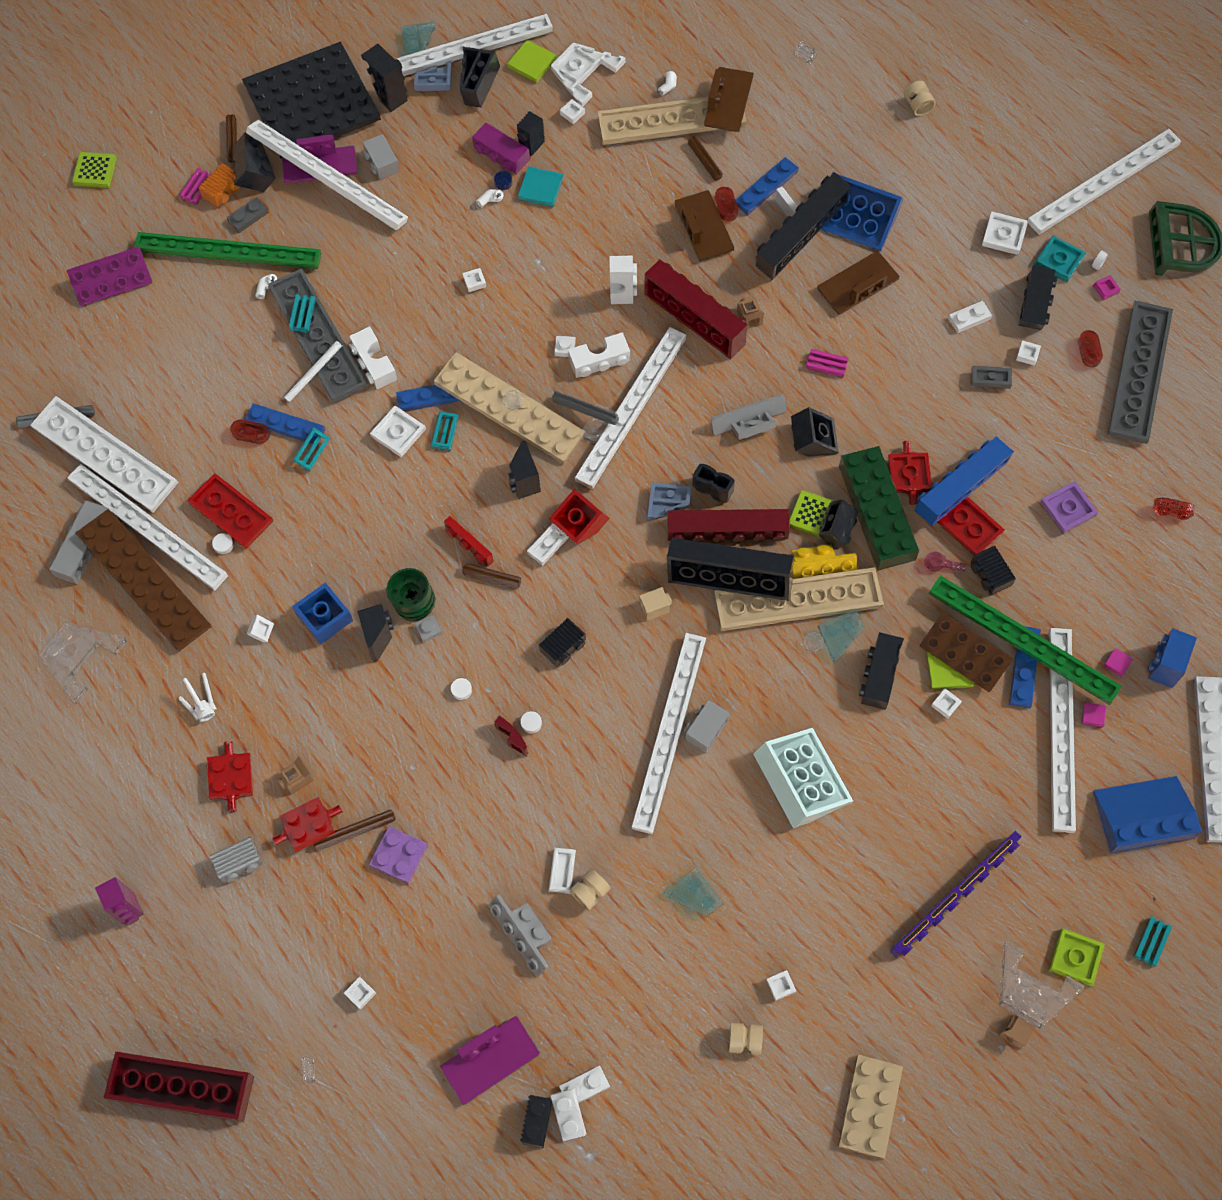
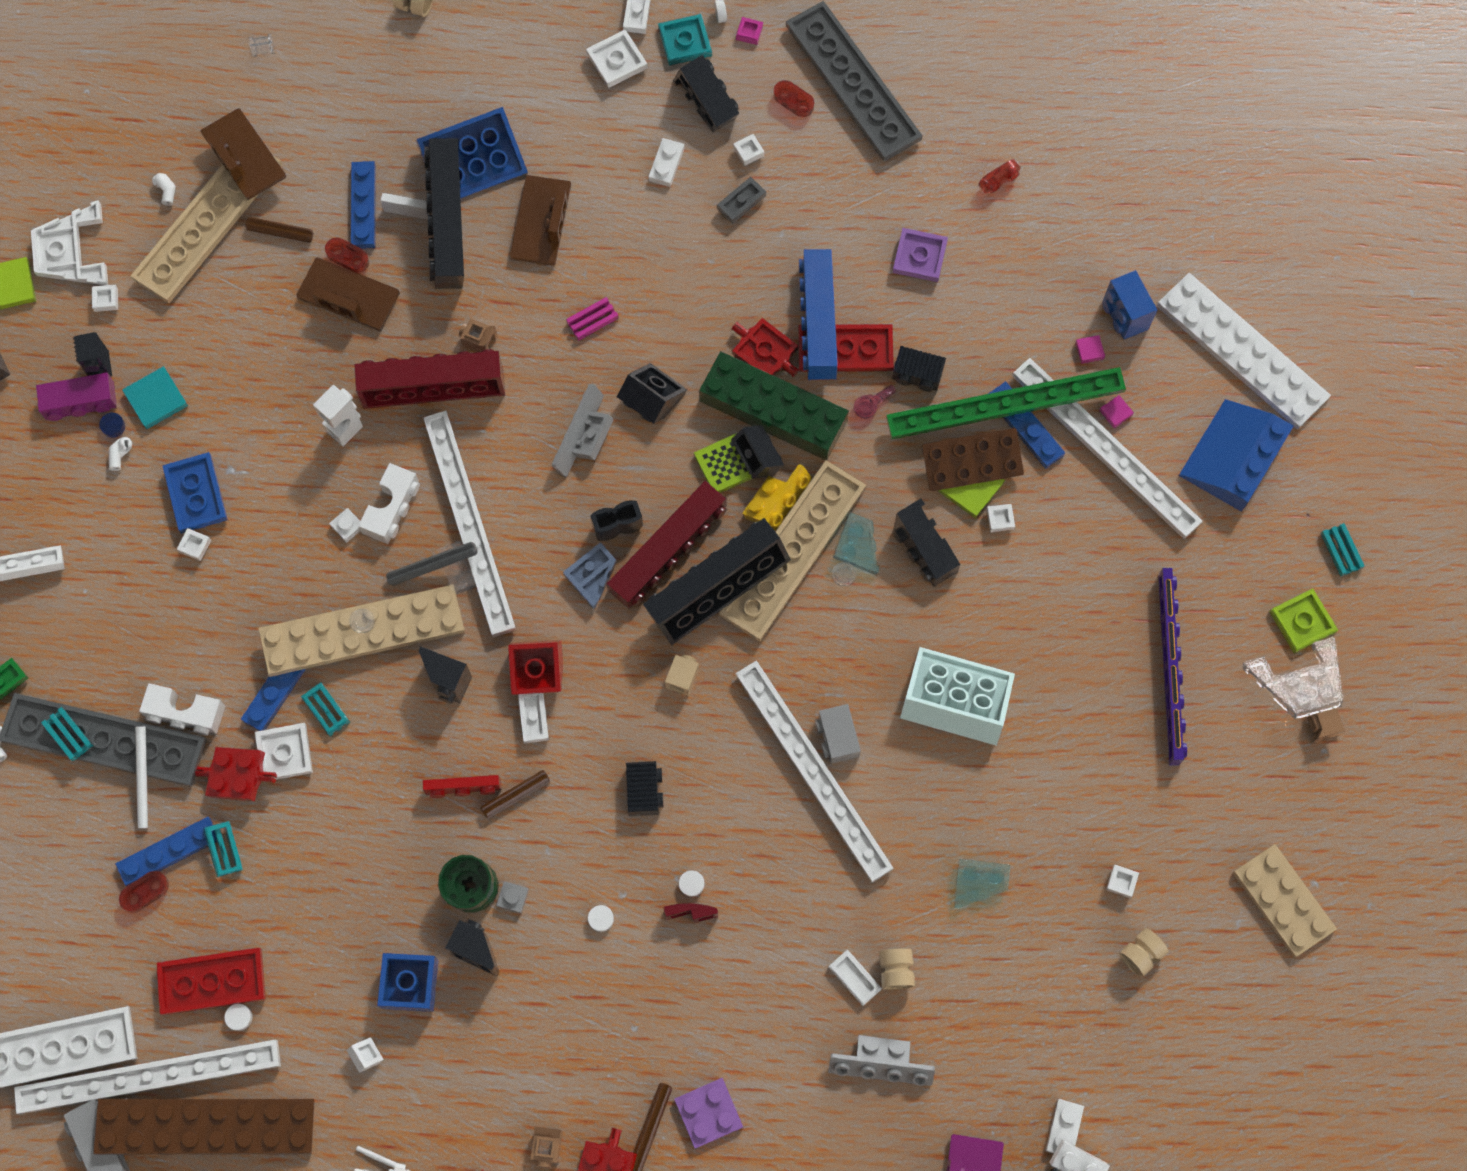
camera: 50 degrees left, 5 degrees up
(360, 417) = (235, 774): none -> red plate
(505, 254) = (195, 492): none -> blue plate

